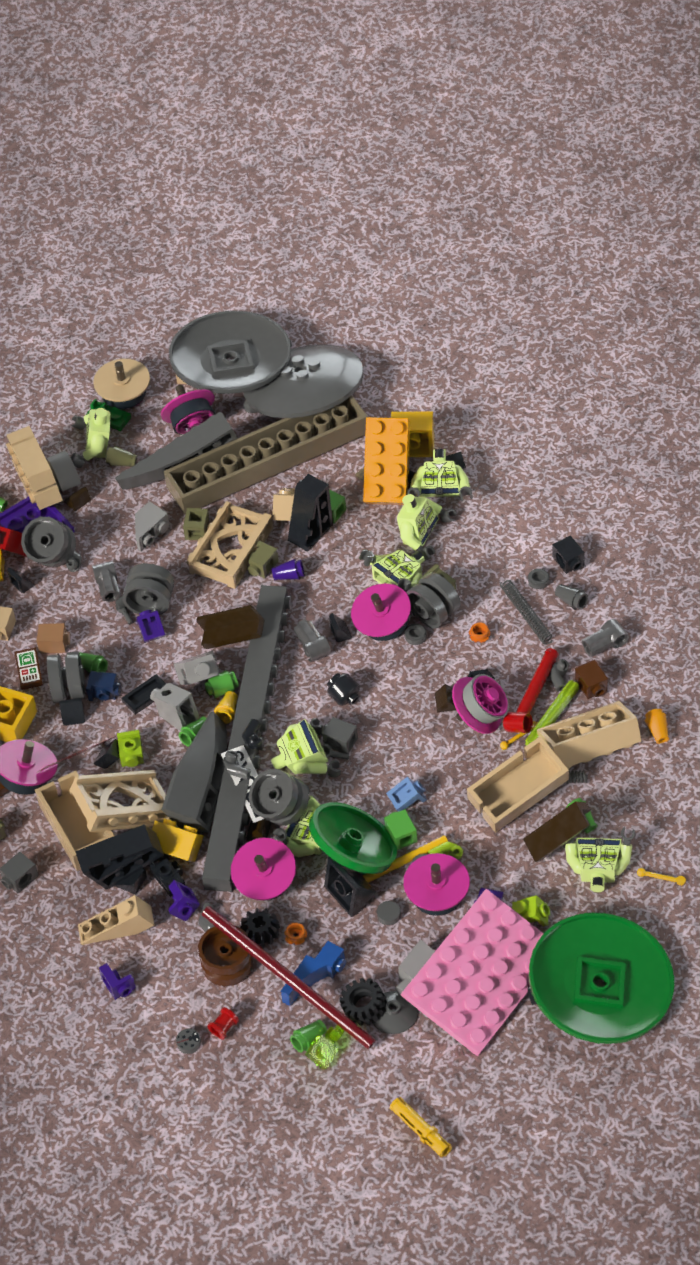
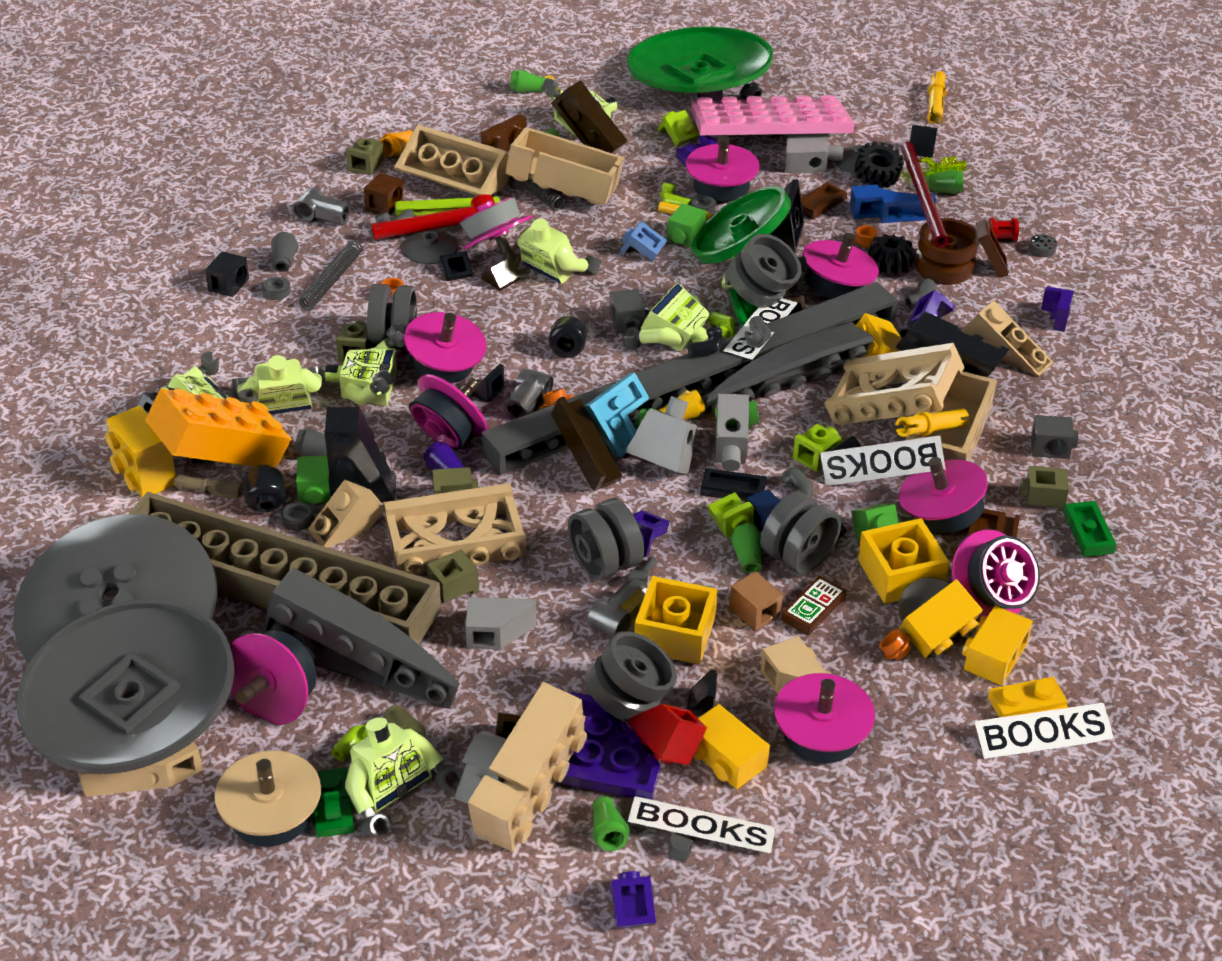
camera: 135 degrees left, 10 degrees down
(42, 723) = (873, 517): none -> bright green brick
(68, 777) = (926, 423): none -> yellow pin
(70, 590) = (678, 617): none -> yellow brick
(113, 724) = (797, 478): none -> dark grey arm
(125, 670) = (730, 513): none -> lime bracket
(135, 440) = (342, 748): none -> lime arm
(198, 979) = (992, 248): none -> reddish brown tile
(237, 655) = (611, 411): none -> medium azure plate
(293, 650) = (550, 398): none -> orange plate
(315, 577) = (447, 411): none -> piece
(341, 479) = (264, 487): none -> black head
(361, 521) = (310, 443): none -> dark grey cone
(364, 942) = (822, 200): none -> reddish brown tile
(370, 1064) = (923, 140): none -> black slope
(433, 723) = (551, 253): none -> yellowish green torso
(515, 688) = (428, 246): none -> dark grey dish
(596, 785) = (504, 133): none -> reddish brown plate
(653, 694) = (366, 149): none -> olive brick
(680, 853) = (523, 81): none -> bright green cone

